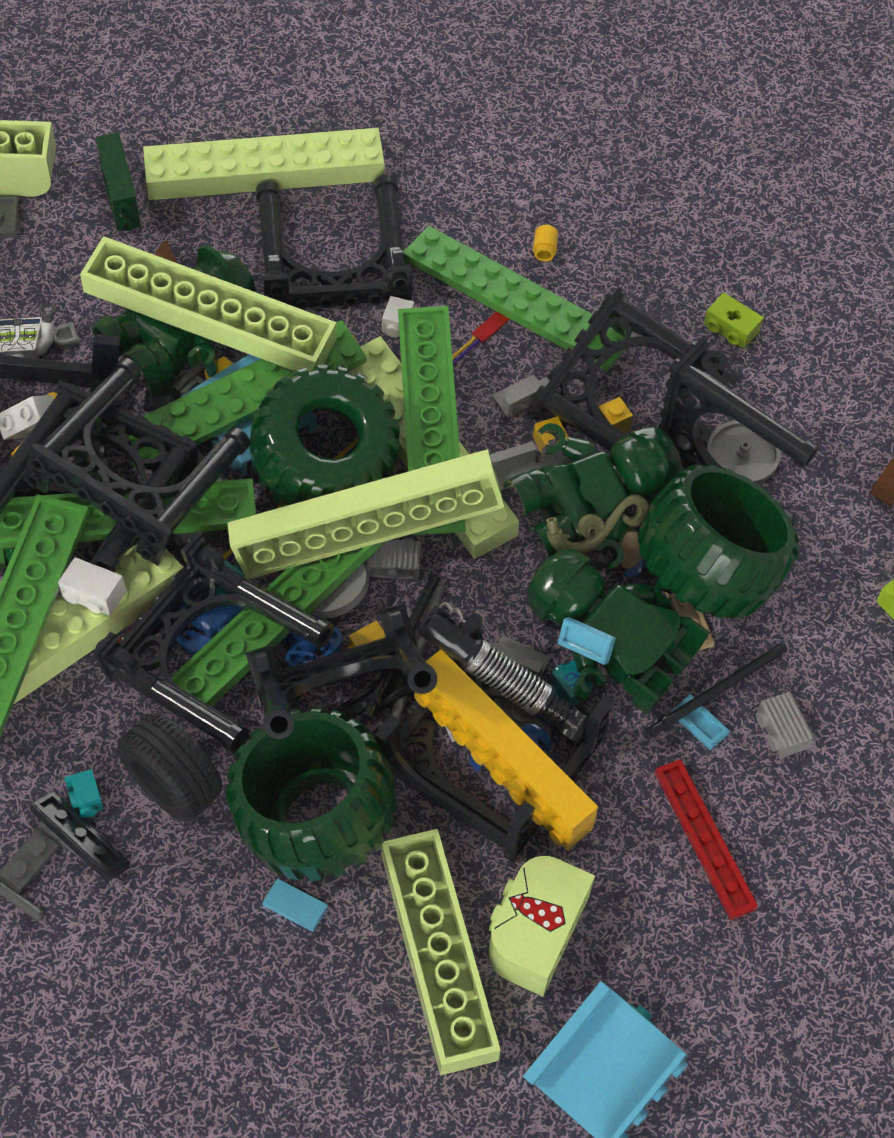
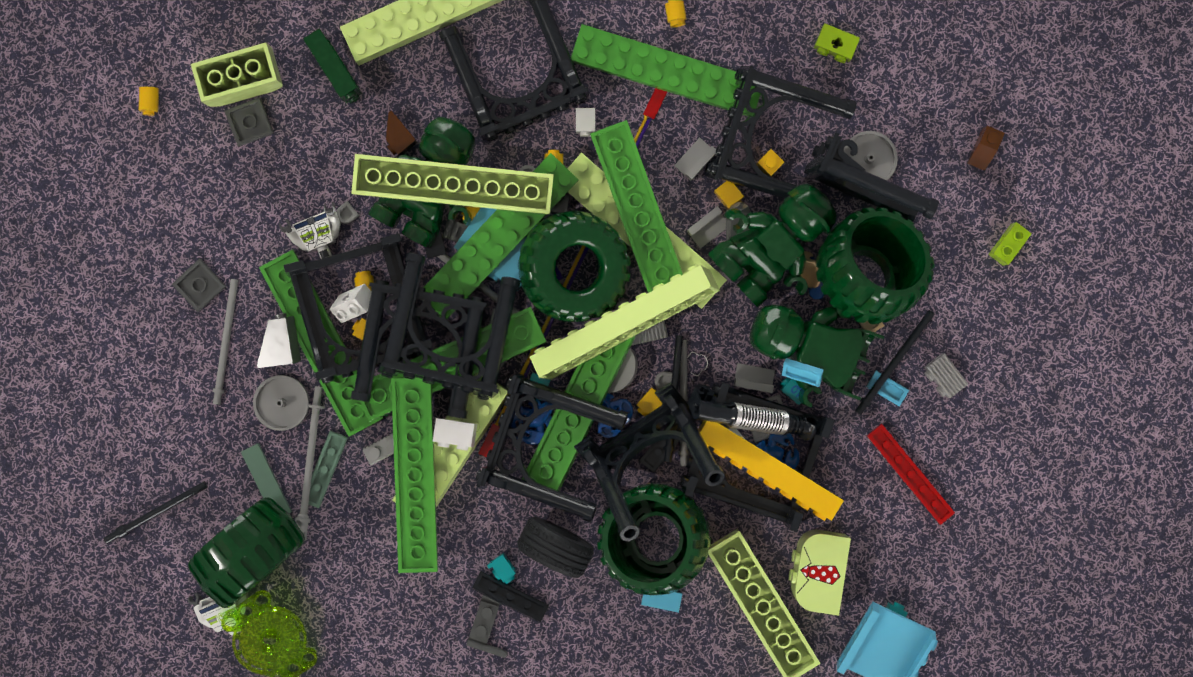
camera: 10 degrees left, 30 degrees up
(600, 530) = (784, 280): olive plant -> none

